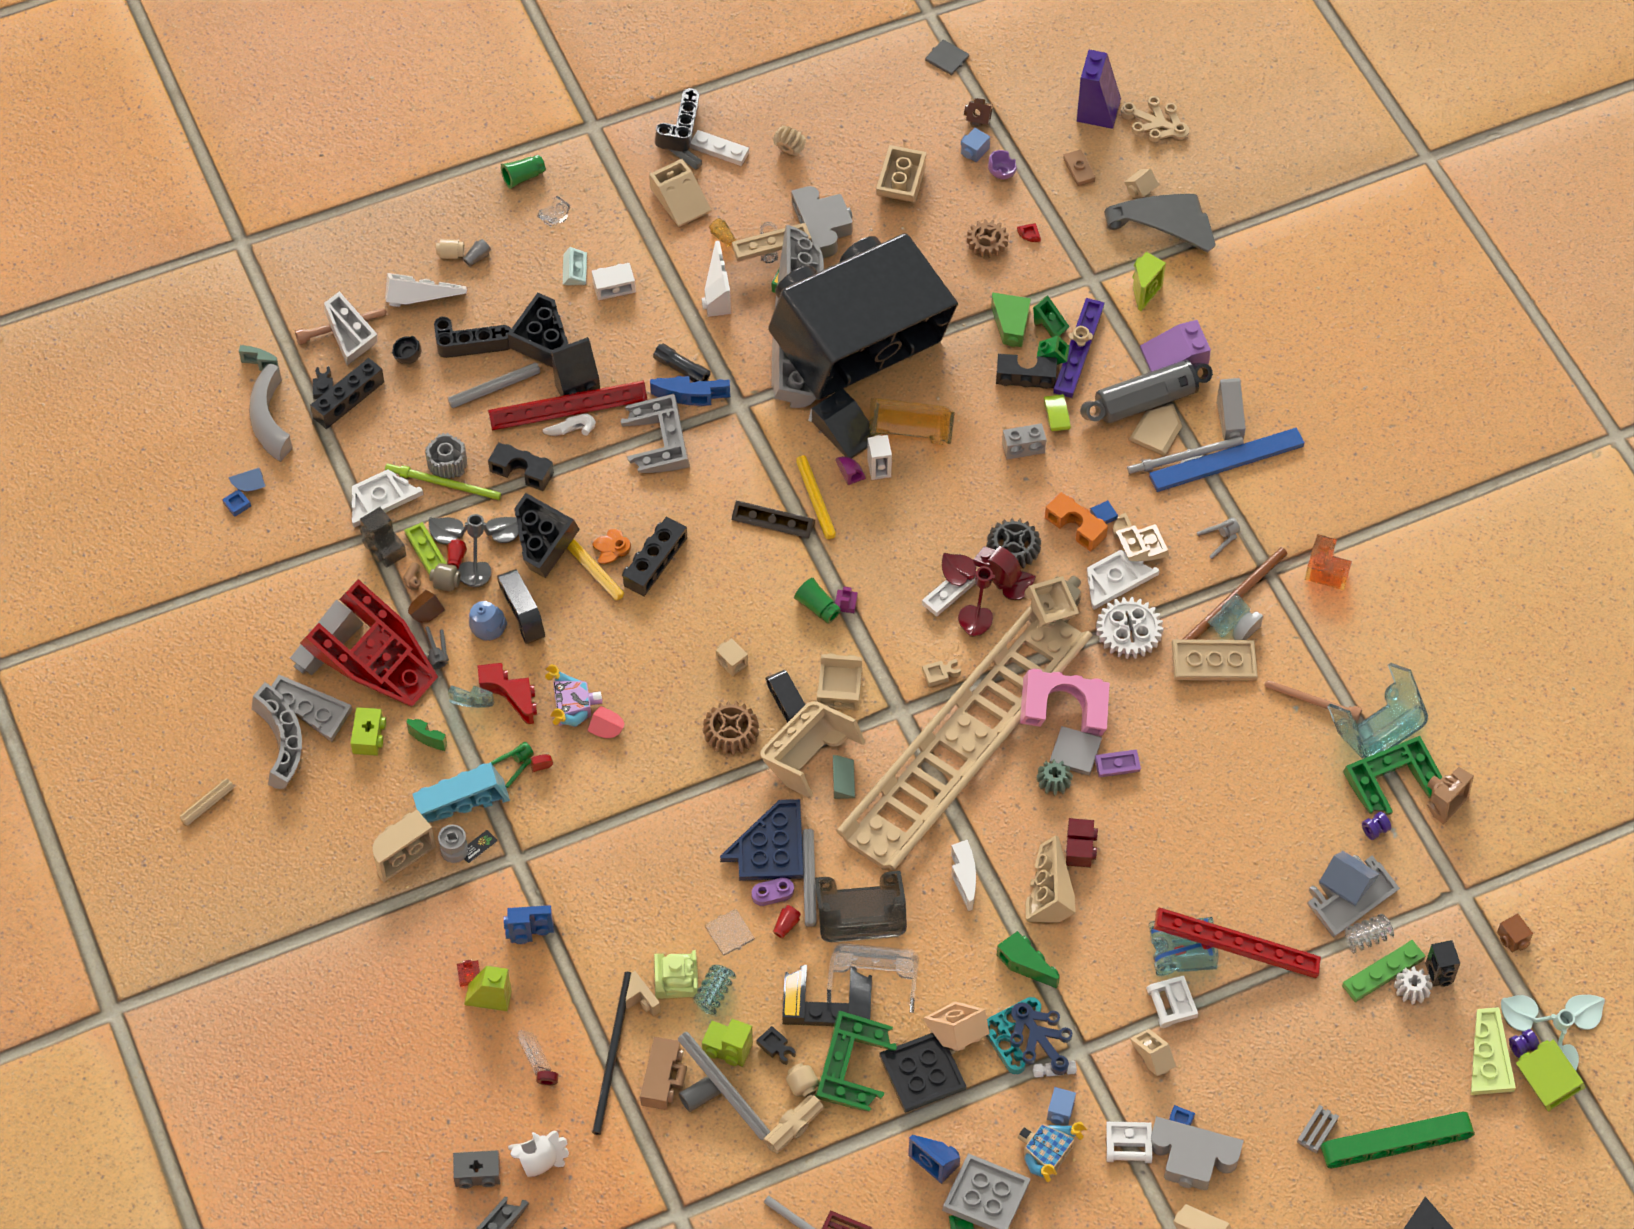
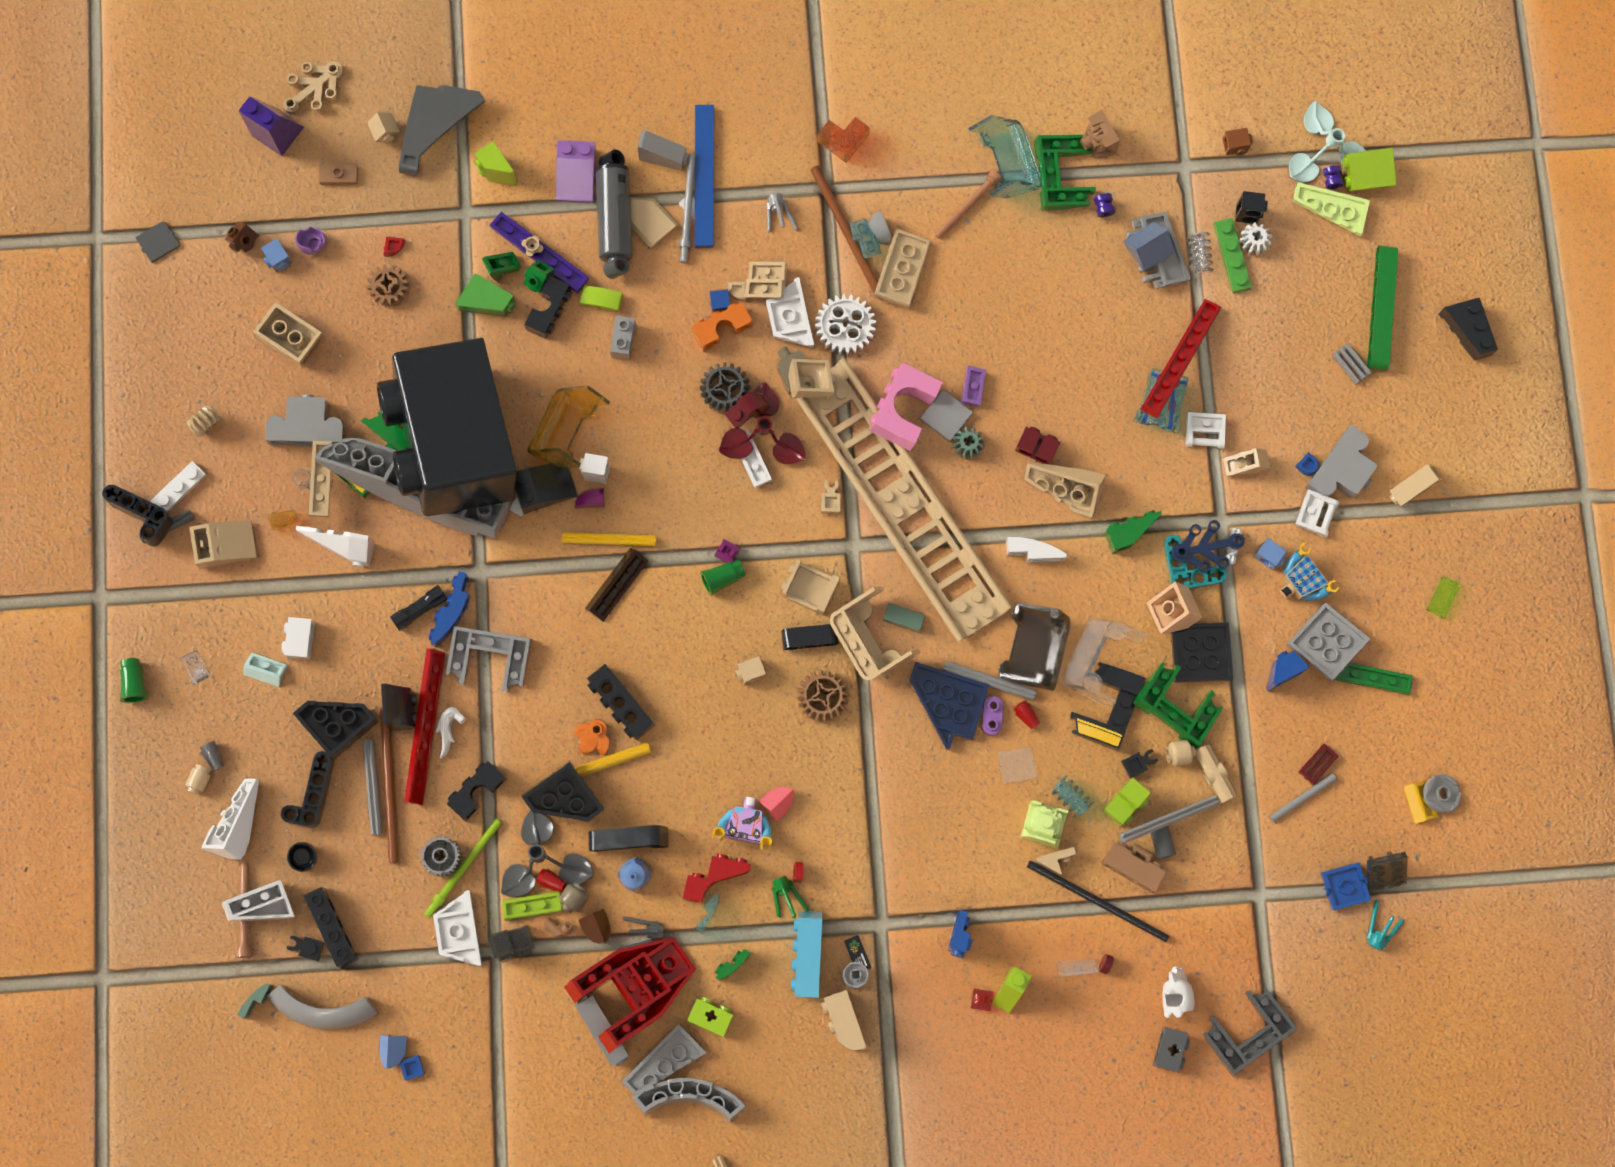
camera: 75 degrees left, 20 degrees up
(490, 401) = (389, 792): none -> dark orange piece

